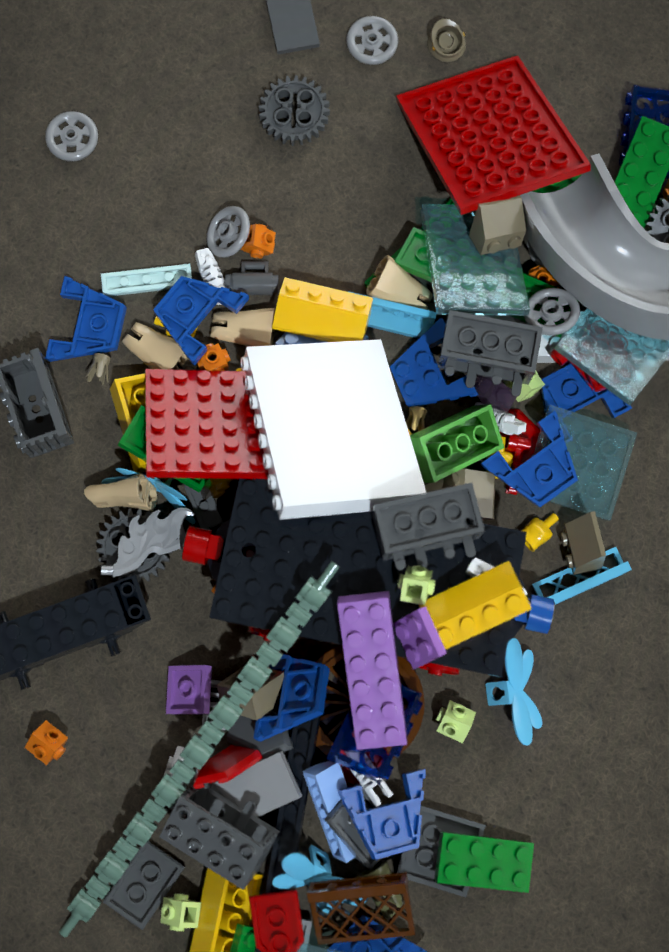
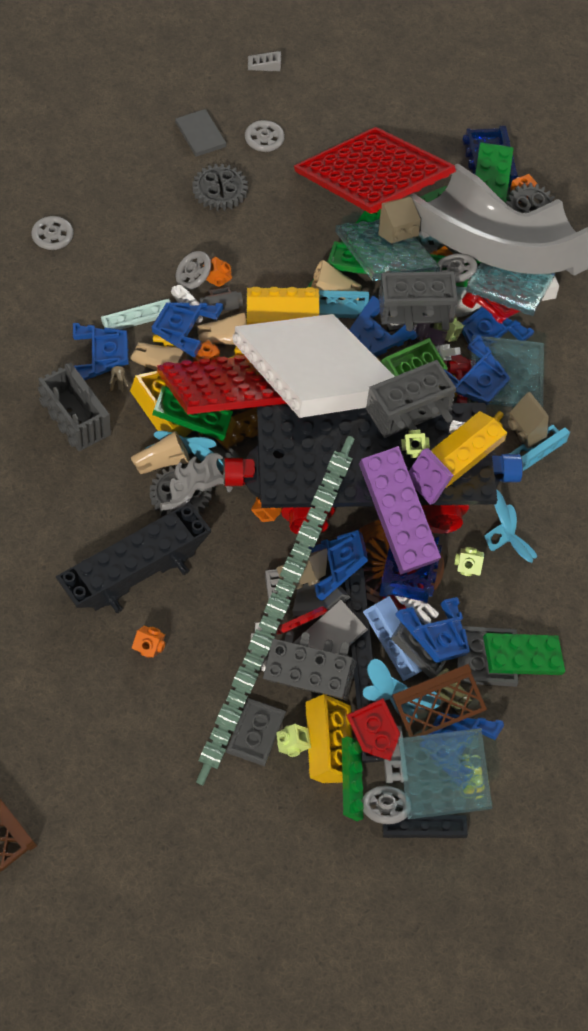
camera: 15 degrees left, 20 degrees down
(189, 689) = (253, 580): medium lavender plate -> none
(446, 41) = (320, 126): dark tan piece -> none

